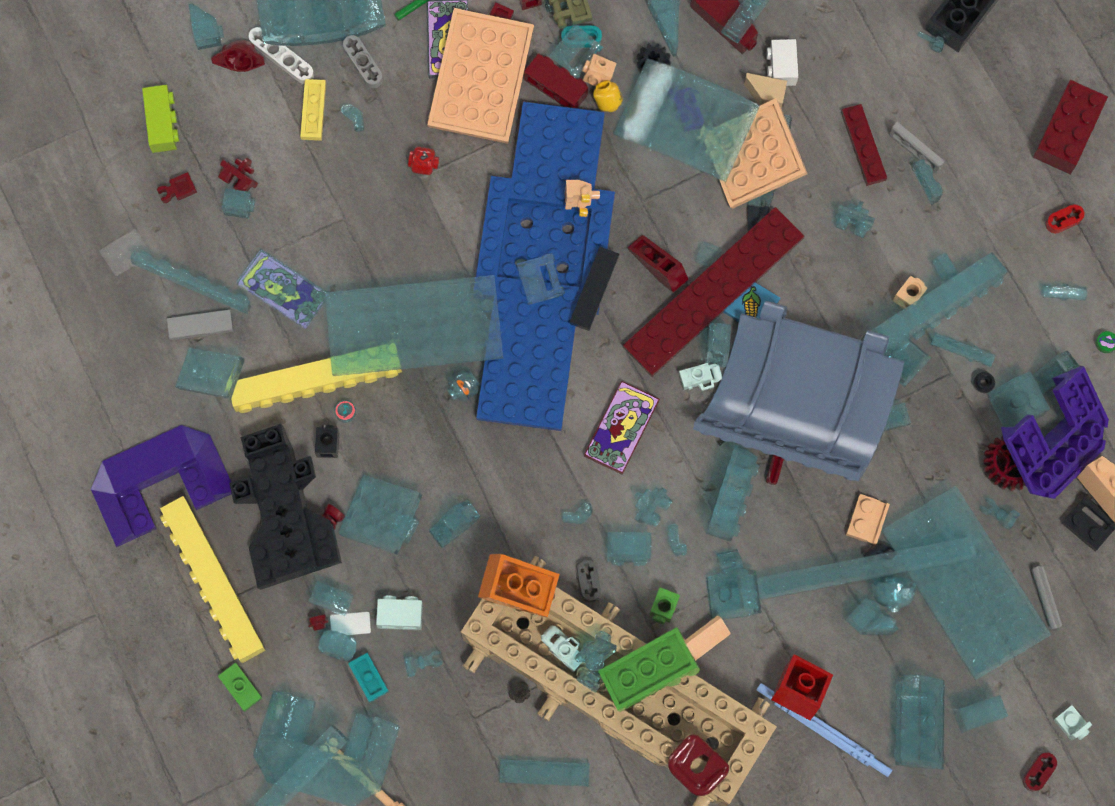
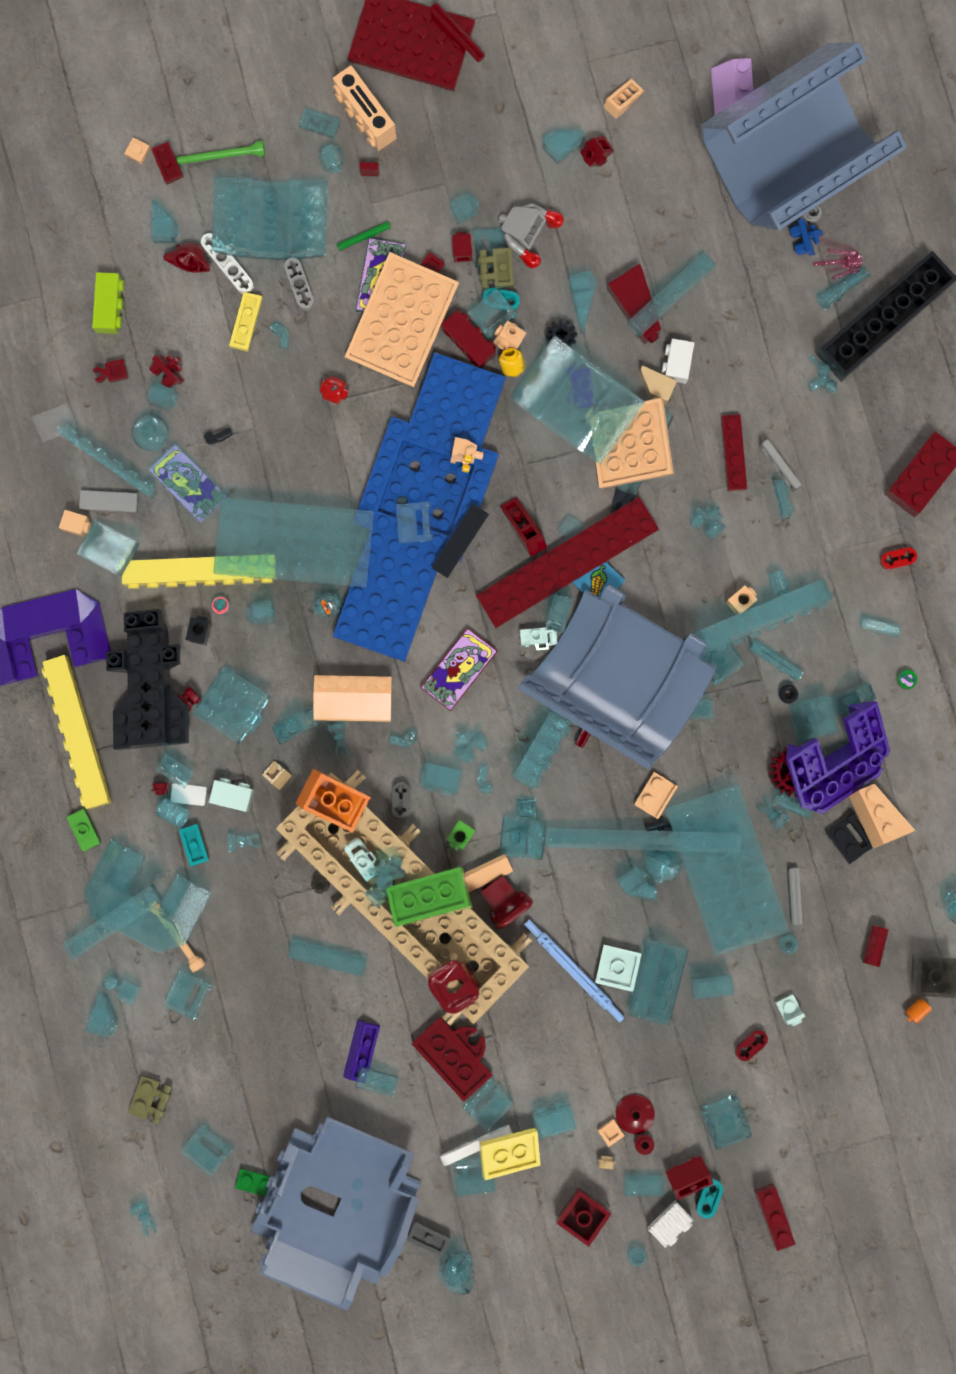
camera: 15 degrees right, 10 degrees up
(167, 354) = (75, 523): none -> light nougat brick
(232, 244) = (150, 432): none -> clear light blue cylinder
(307, 234) = (219, 437): none -> black arm
(393, 408) = (261, 613): none -> clear light blue slope
(445, 582) = (276, 775): none -> tan slope
(503, 517) = (339, 736): none -> clear light blue piece
(513, 479) = (352, 698): none -> light nougat slope
(724, 662) = (502, 895): none -> dark red piece
(802, 687) = (562, 932): red brick -> none
(872, 716) = (618, 968): none -> light aqua plate
(947, 56) = (823, 382): none -> clear light blue arm
(1011, 498) = (785, 802): none -> clear light blue plate
(1057, 647) = (795, 945): none -> clear light blue plate

